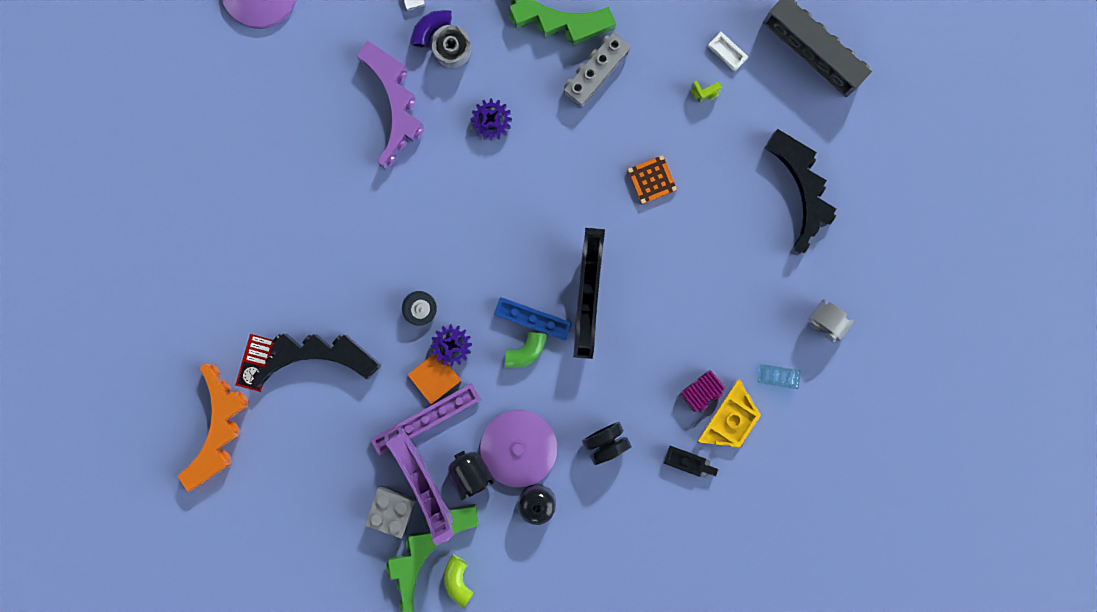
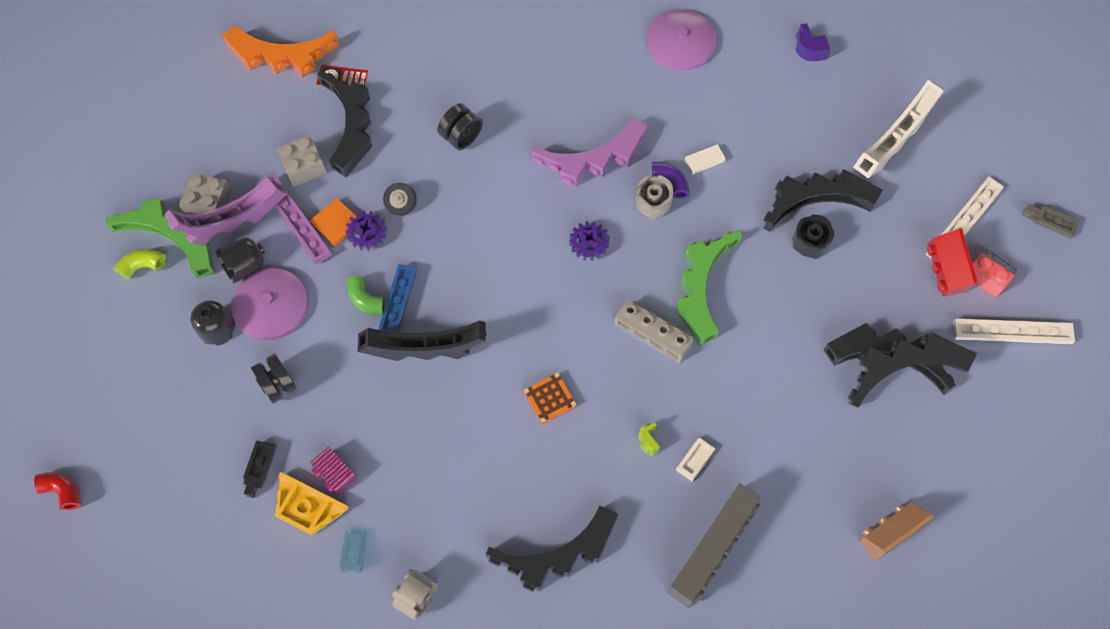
camera: 90 degrees right, 20 degrees down
(342, 238) = (460, 126): none -> black wheel
(359, 409) = (301, 160): none -> light grey brick

